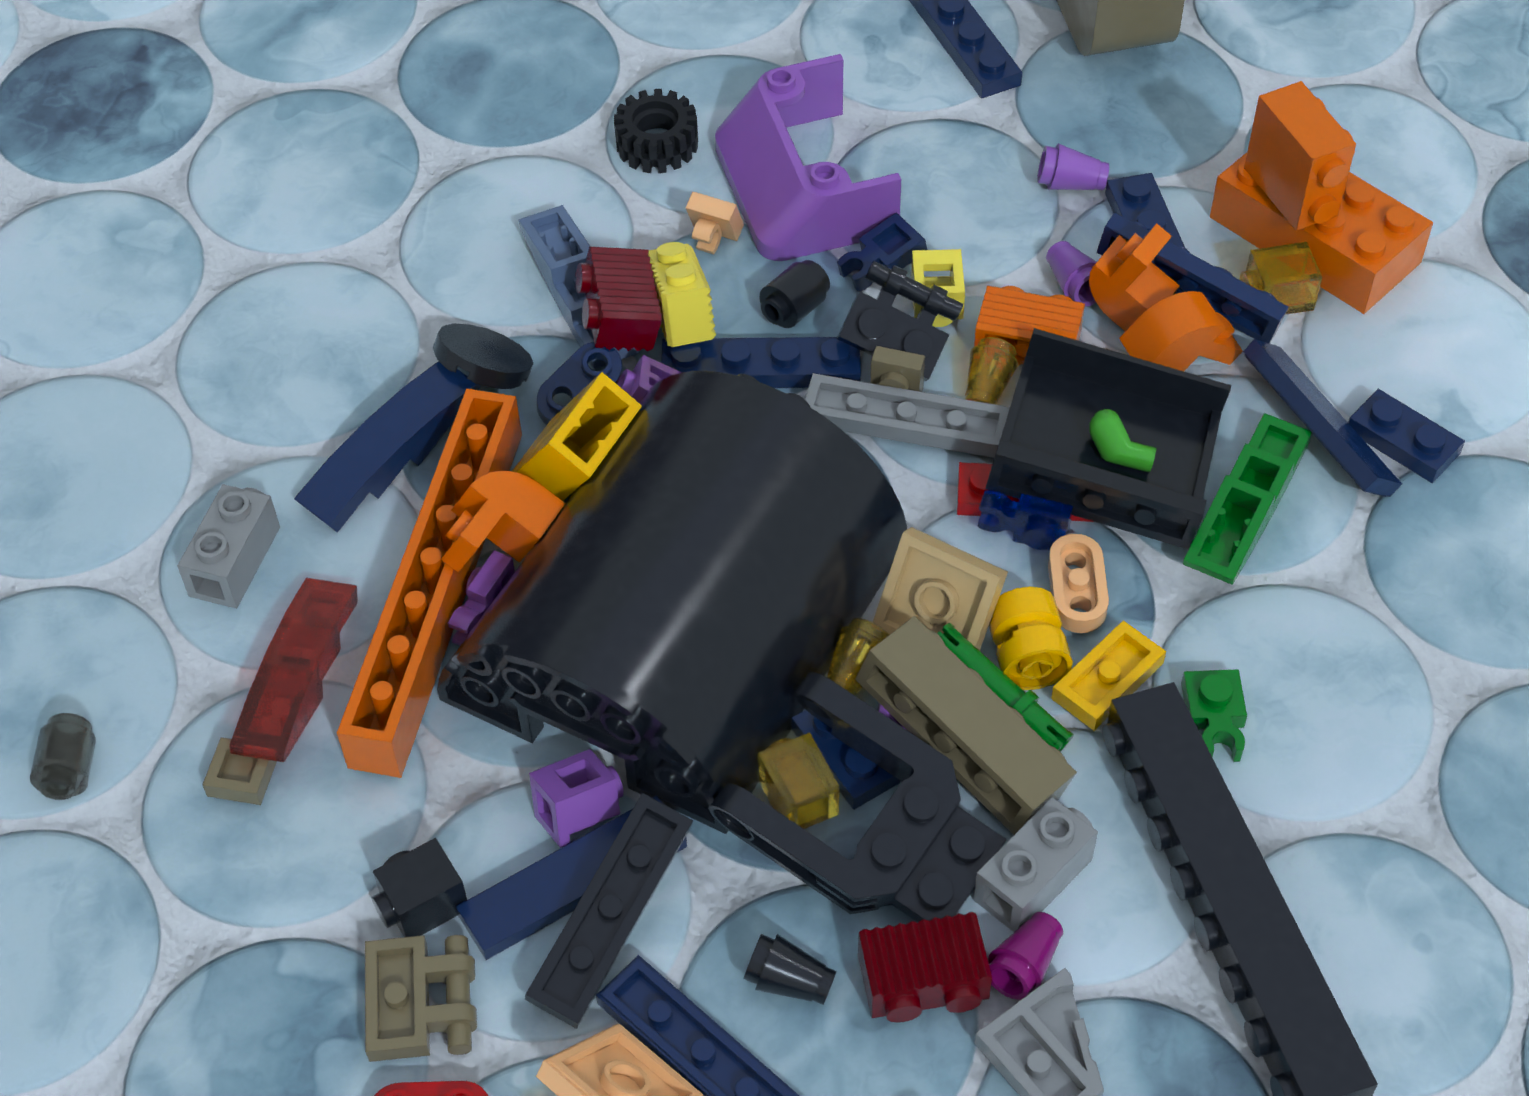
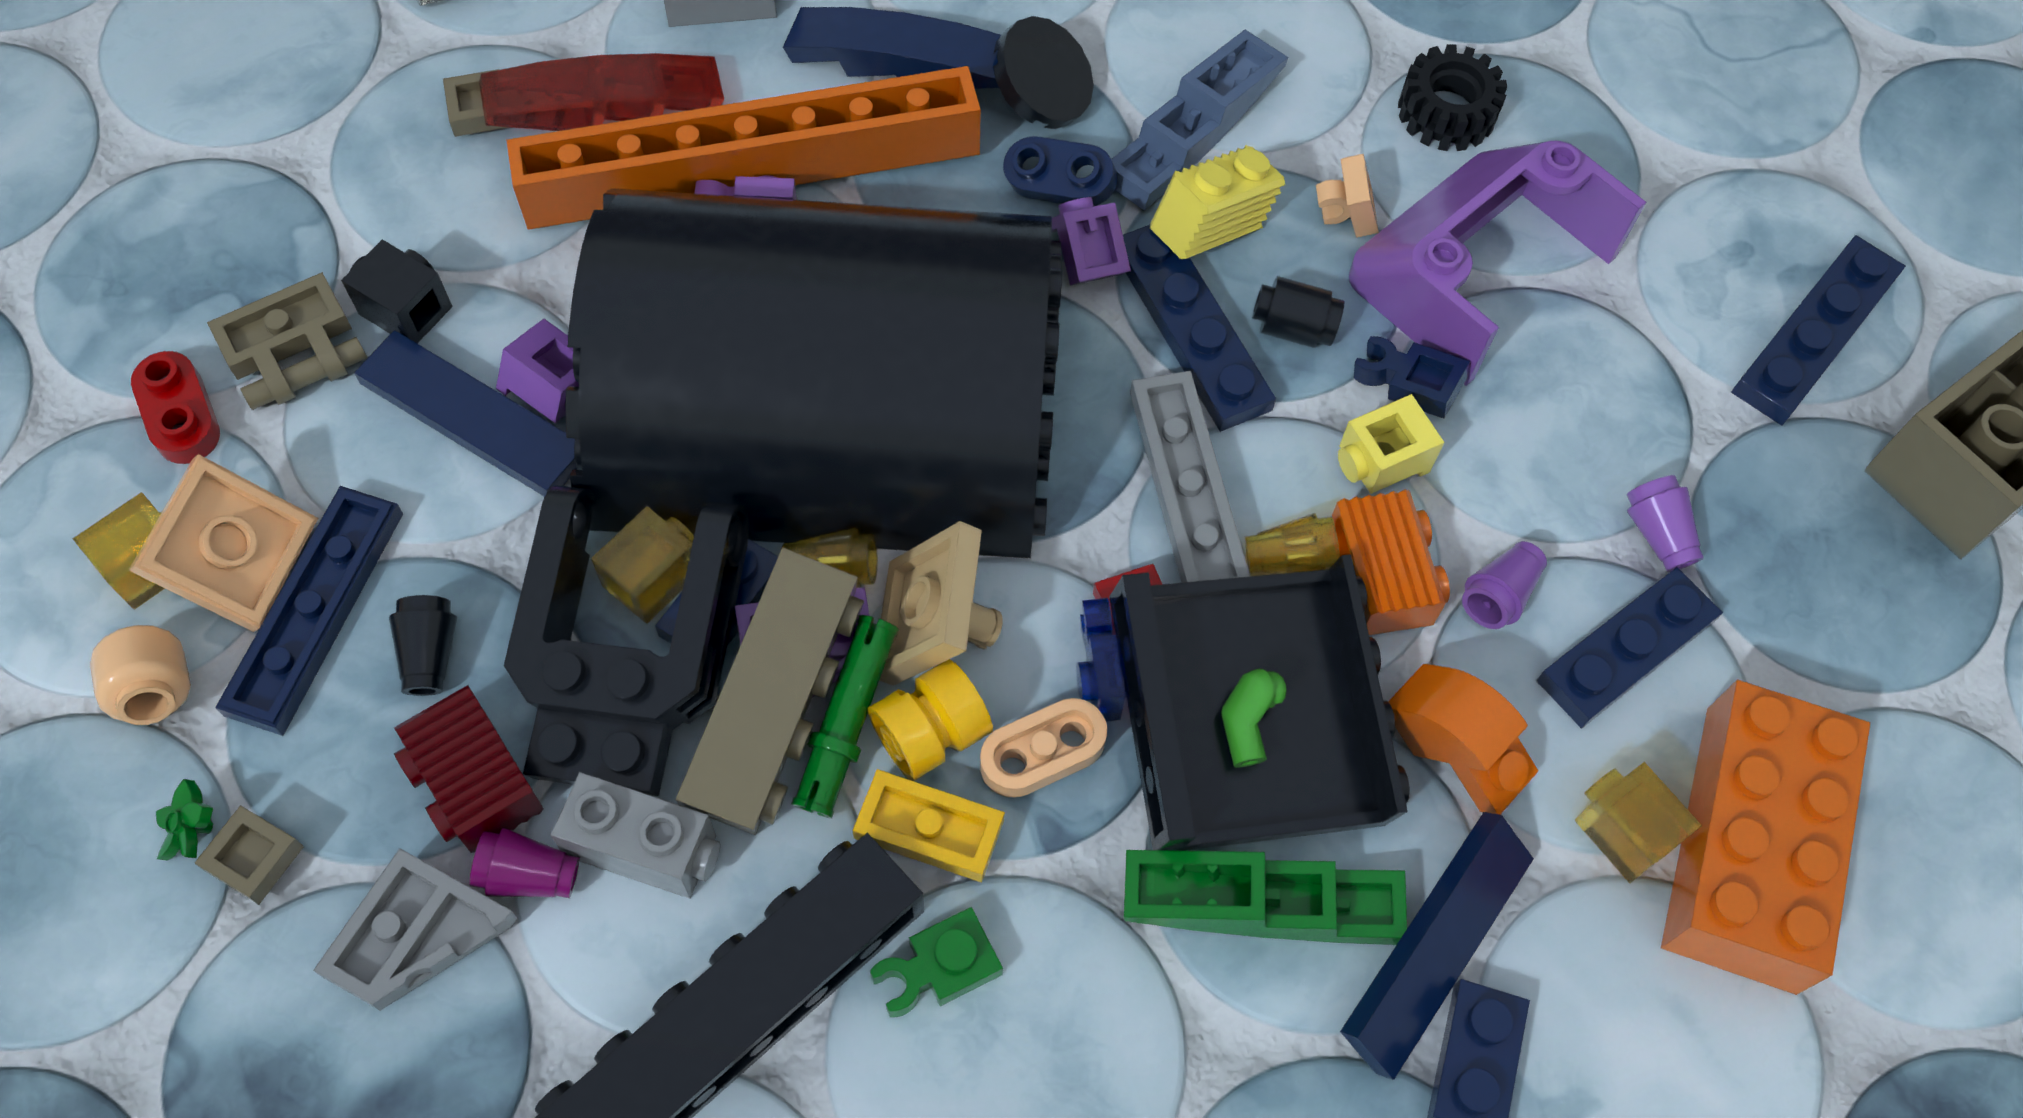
camera: 60 degrees right, 10 degrees up
(506, 510) = (819, 145): orange brick -> none
(579, 437) = (941, 176): yellow brick -> none
(608, 911) = (427, 453): black plate -> none
(619, 298) = (1172, 136): dark red brick -> none
(877, 323) = (1284, 422): black plate -> none
(897, 369) = (1238, 453): dark tan plate -> none
(1126, 279) = (1509, 639): orange brick -> none
(1245, 307) = (1562, 740): dark blue plate -> none
(1299, 155) = (1794, 750): orange brick -> none

